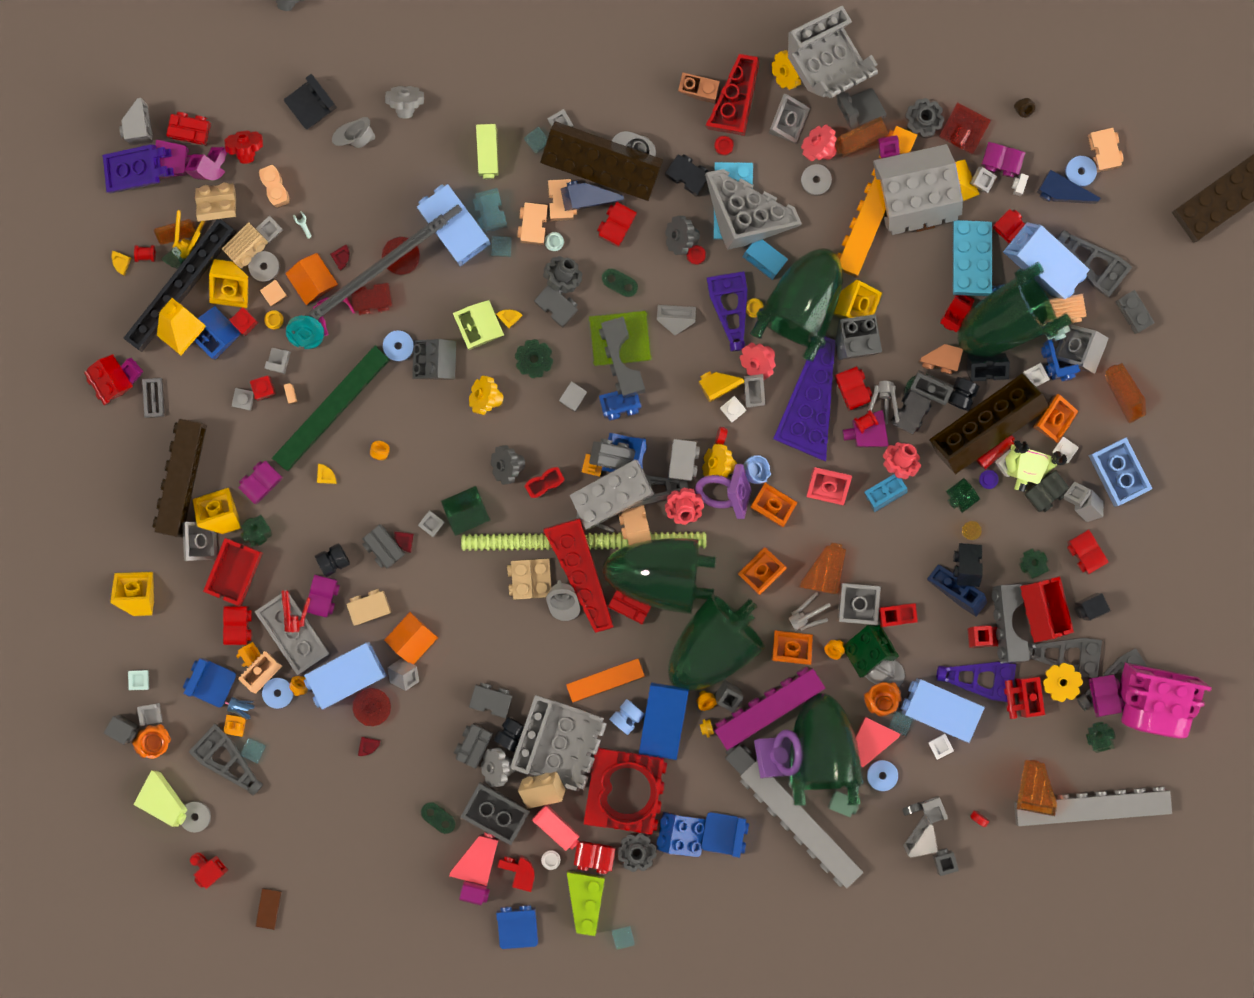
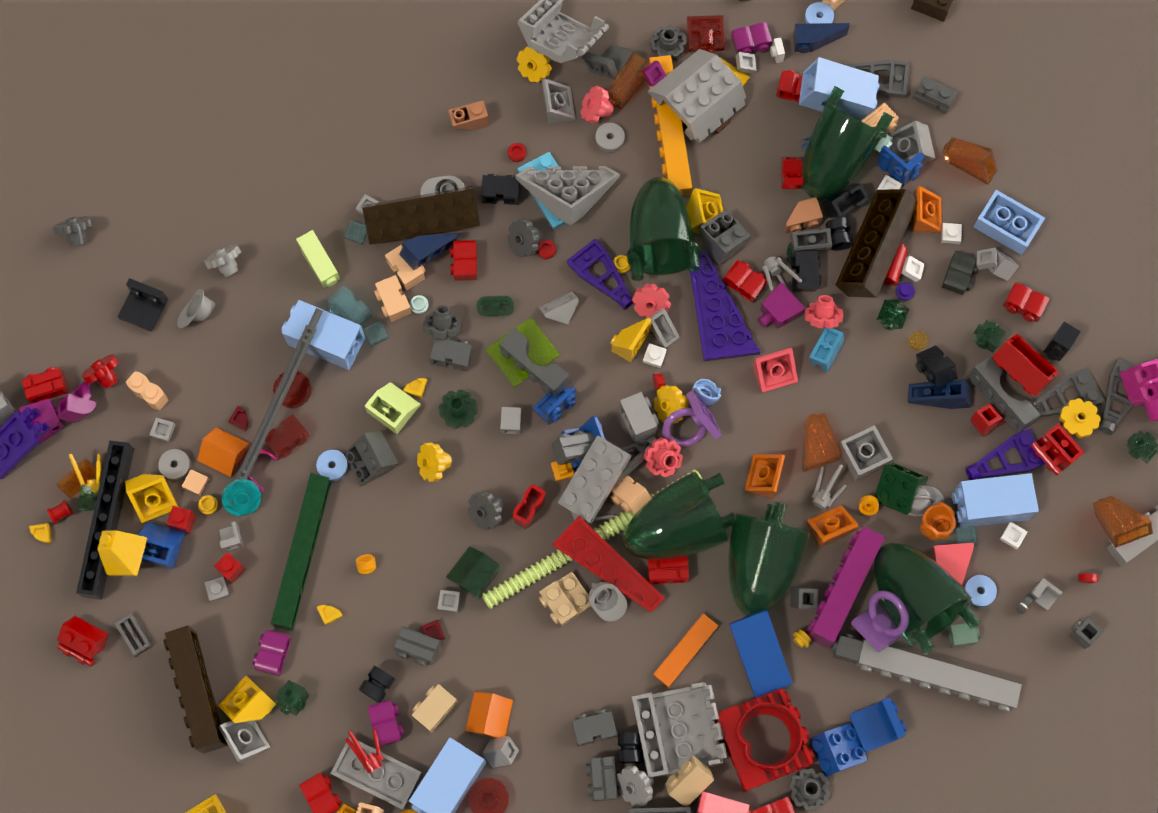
camera: 25 degrees left, 15 degrees down
(131, 370) = (100, 620): magenta plate -> none
(215, 202) = (100, 430): tan plate -> none
(233, 572) = (290, 747): red piece -> none
(244, 245) = (147, 454): tan brick -> none
(290, 393) = (257, 559): light nougat tile -> none
(301, 222) = (190, 409): light aqua hand -> none
(627, 716) = (725, 670): light blue wheel -> none
(706, 701) = (786, 615): light orange tile -> none
(735, 101) = (505, 112): red wedge -> none
(765, 258) = (606, 219): dark azure hinge -> none
(773, 505) = (739, 415): orange slope -> none
(866, 421) = (774, 297): red bush -> none
(898, 615) = (904, 443): red brick -> none
(922, 839) = (1052, 622): light grey slope -> none
(972, 258) = (776, 125): medium azure plate -> none
(1030, 465) = (931, 258): yellowish green torso -> none
(1105, 695) = (1123, 408): magenta brick -> none

